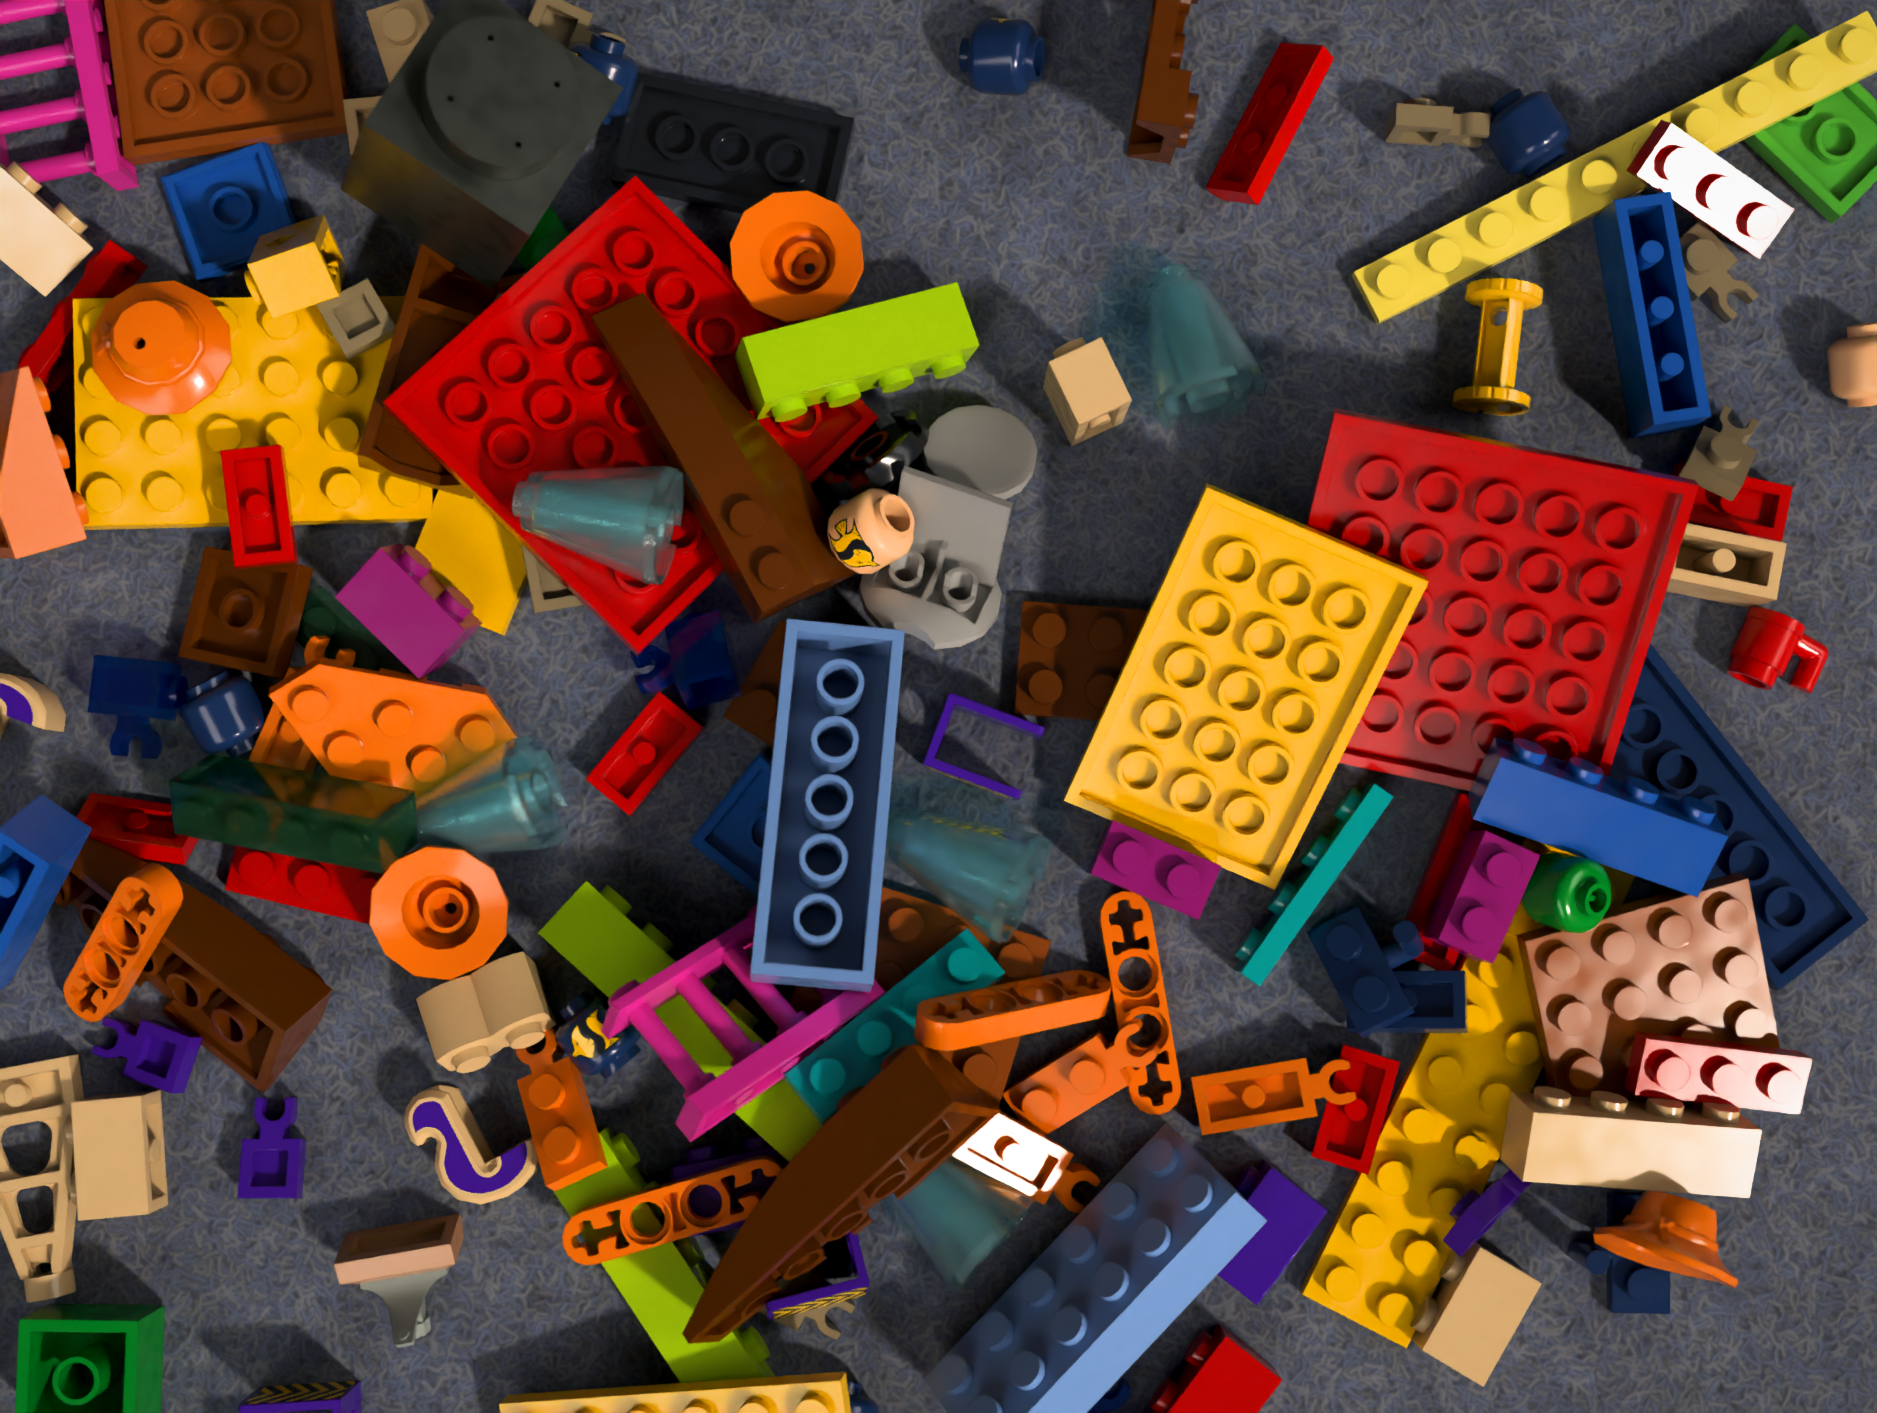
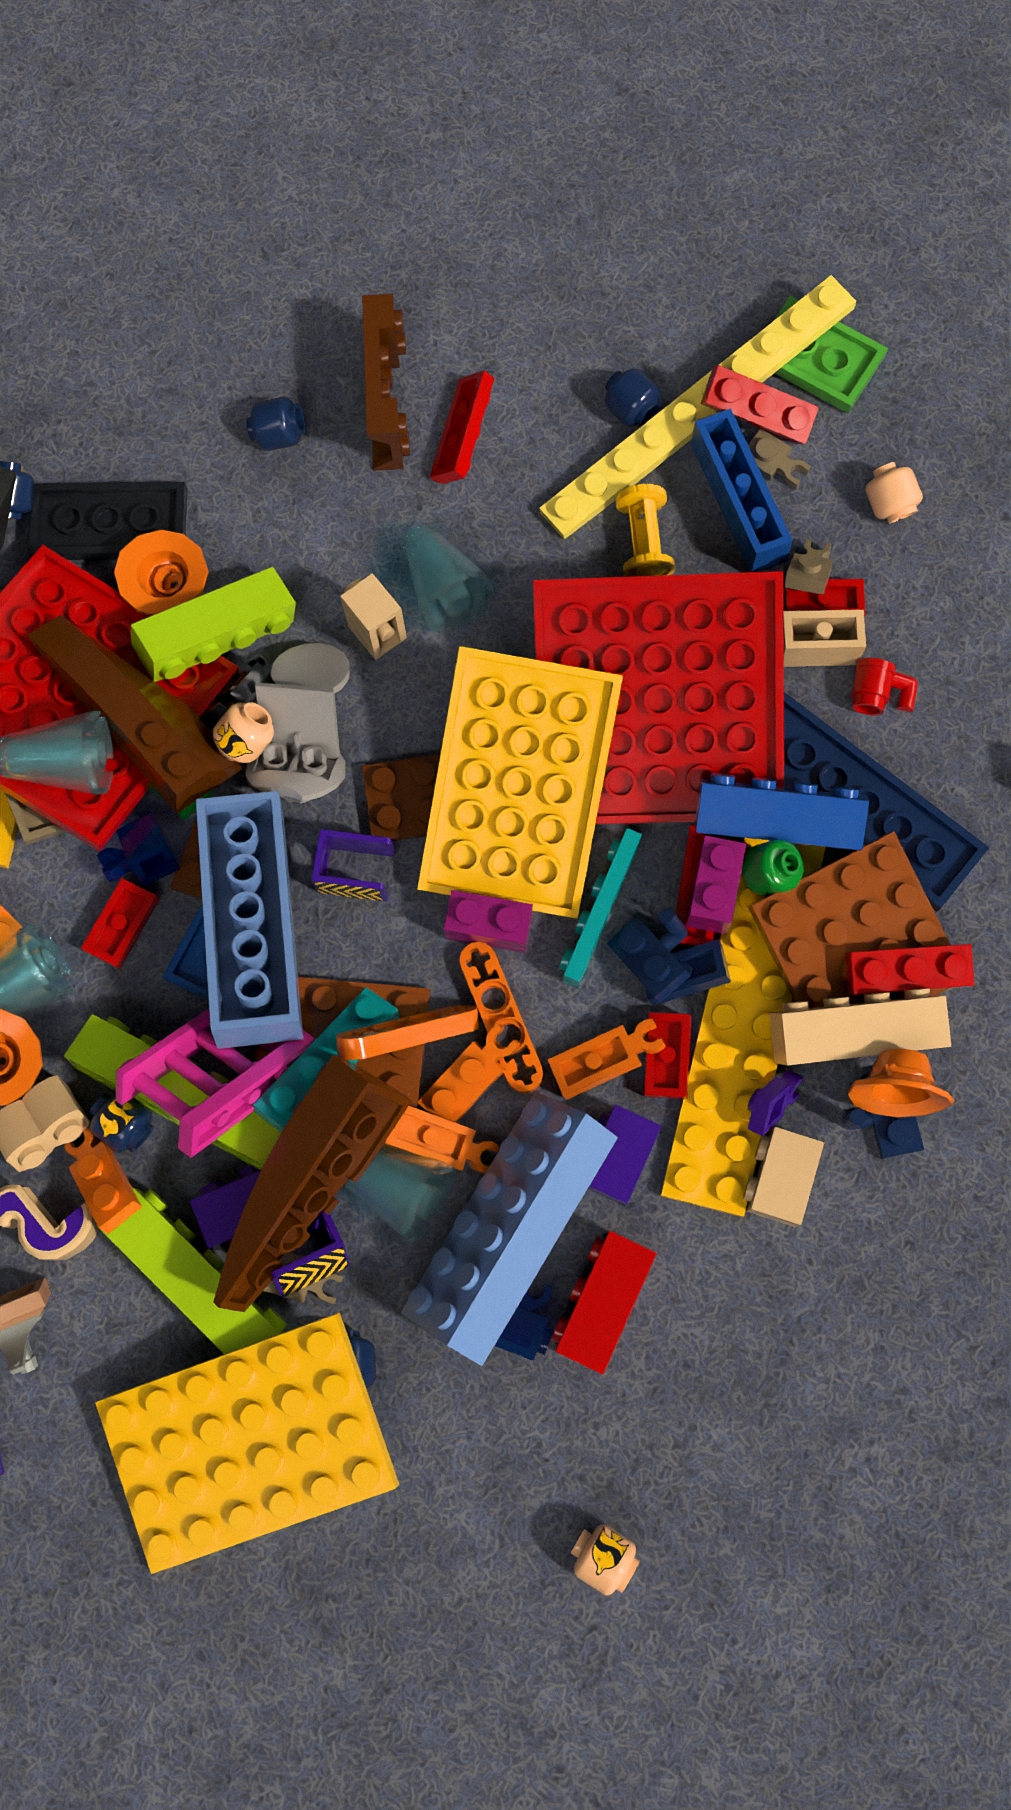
camera: 10 degrees left, 10 degrees down
(674, 1202) = (199, 1231): orange beam -> none
(970, 866) = (362, 947): clear light blue cone -> none
(1424, 123) = (569, 406): dark tan plate -> none

